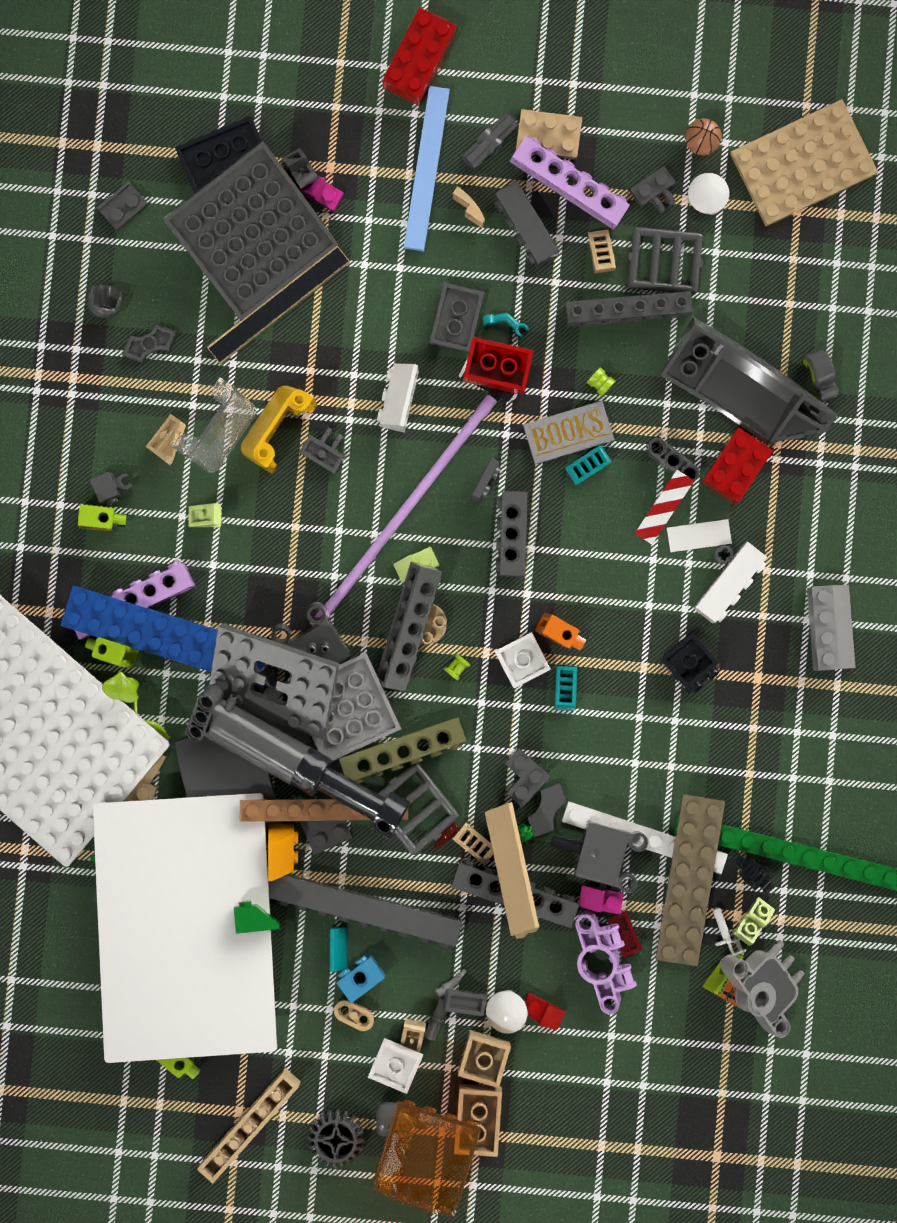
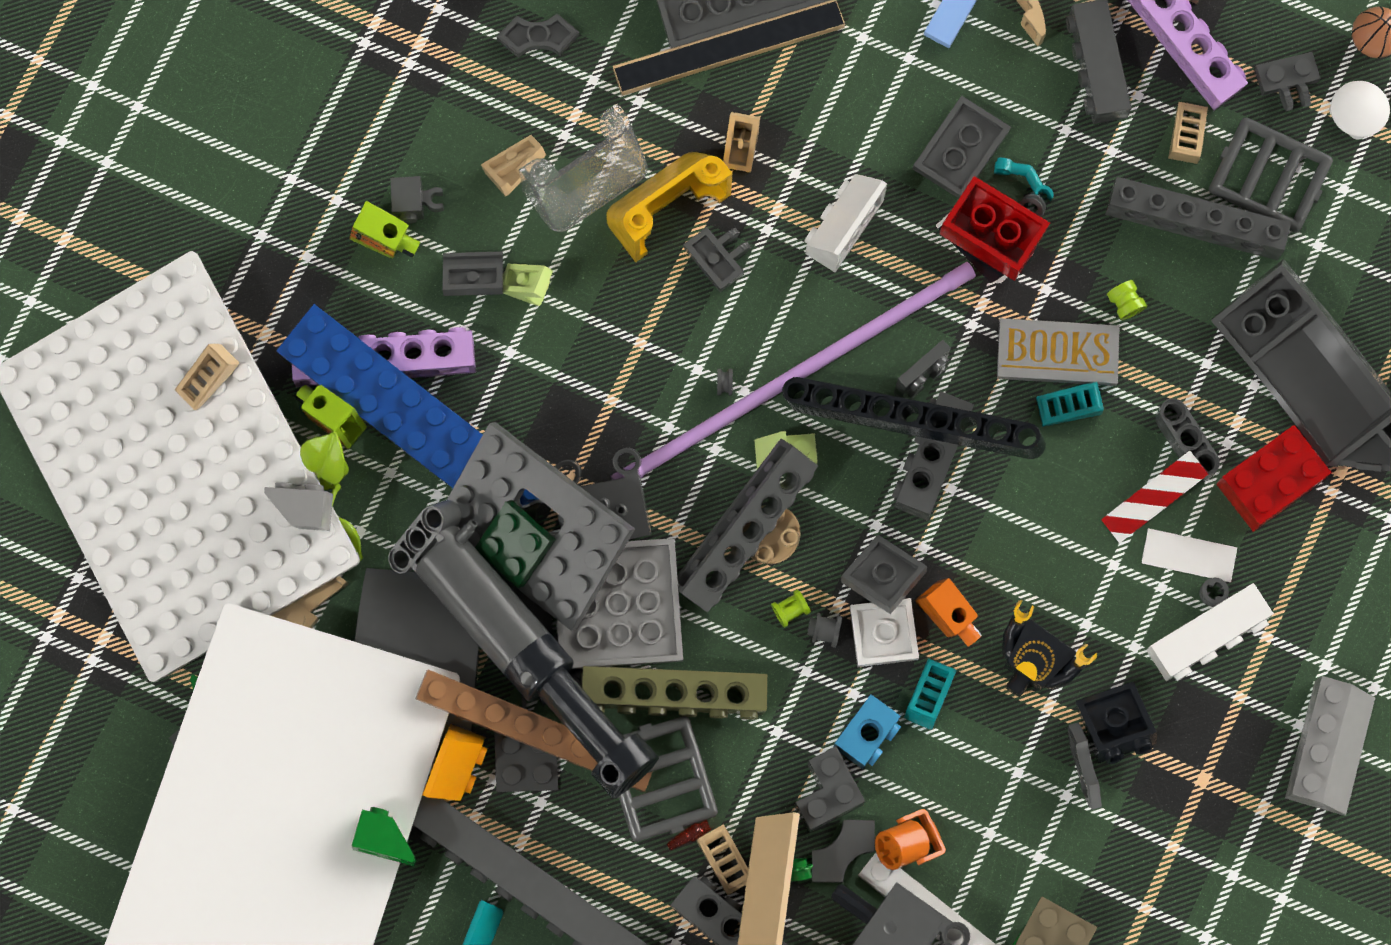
camera: 20 degrees right, 10 degrees down
(27, 648) = (206, 359): none -> tan slope
(118, 726) = (302, 508): none -> light grey slope
(168, 522) = (472, 273): none -> dark grey plate
(265, 697) = (515, 543): none -> dark green plate
(311, 368) = (741, 141): none -> tan slope
(359, 534) = (724, 382): none -> dark grey bush
(483, 672) = (824, 629): none -> dark grey brick
(500, 519) = (923, 426): none -> black beam
(508, 623) = (884, 574): none -> dark grey plate
(517, 336) = (1037, 200): none -> dark grey bush
(526, 738) = (872, 714): none -> dark azure brick
(586, 790) = (909, 841): none -> orange piece
(626, 639) = (1038, 656): none -> black torso
(679, 698) = (1086, 773): none -> dark grey tile

